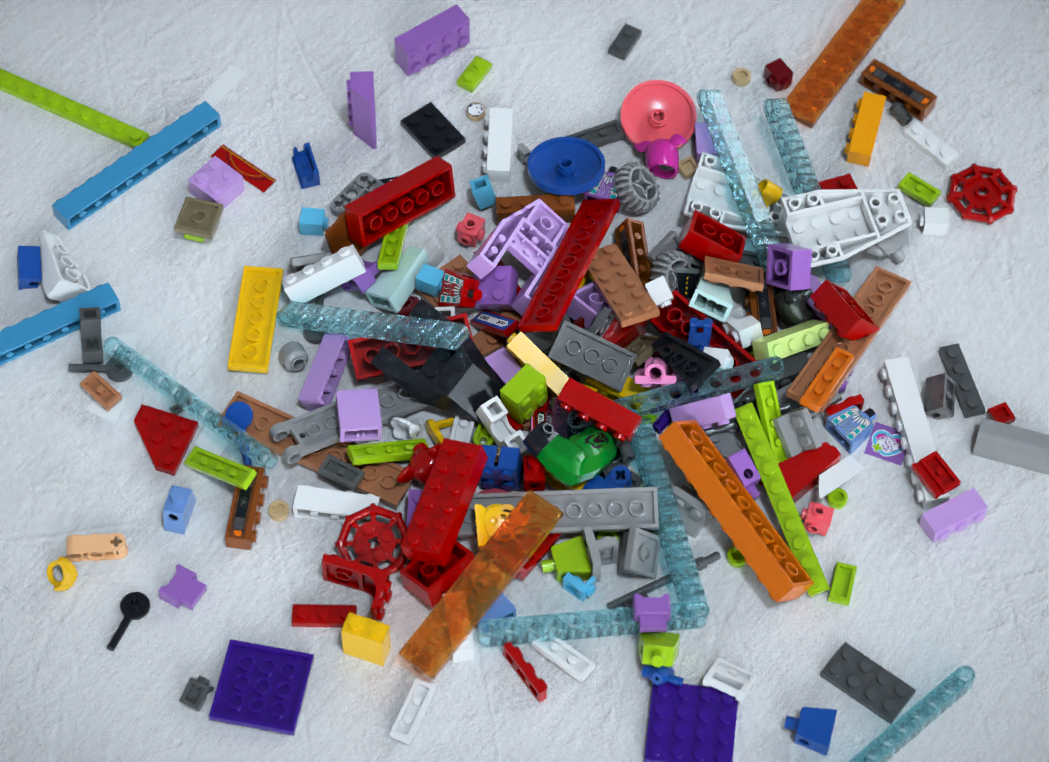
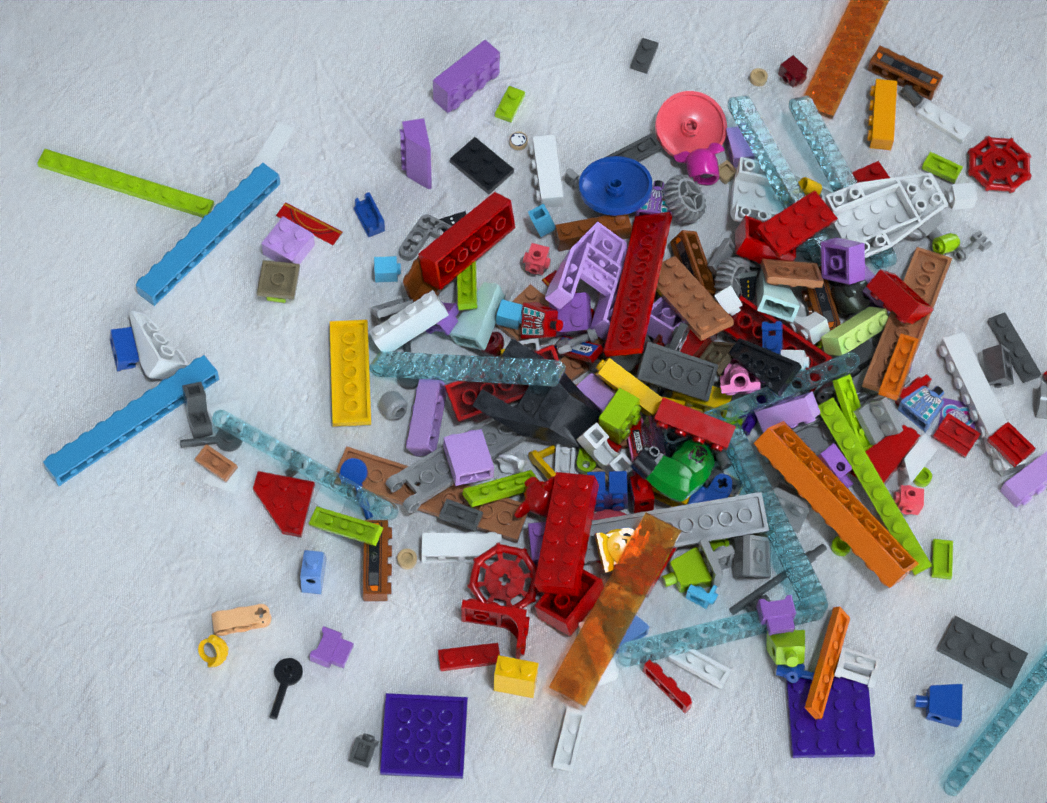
camera: 10 degrees left, 5 degrees up
(483, 316) = (564, 345): none -> light grey hinge
(696, 669) = (827, 663): none -> orange plate
(746, 224) = (796, 224): none -> red plate
(881, 460) = (956, 435): none -> red plate
(907, 266) = (945, 243): none -> lime brick
(923, 278) = (961, 253): none -> light grey hinge

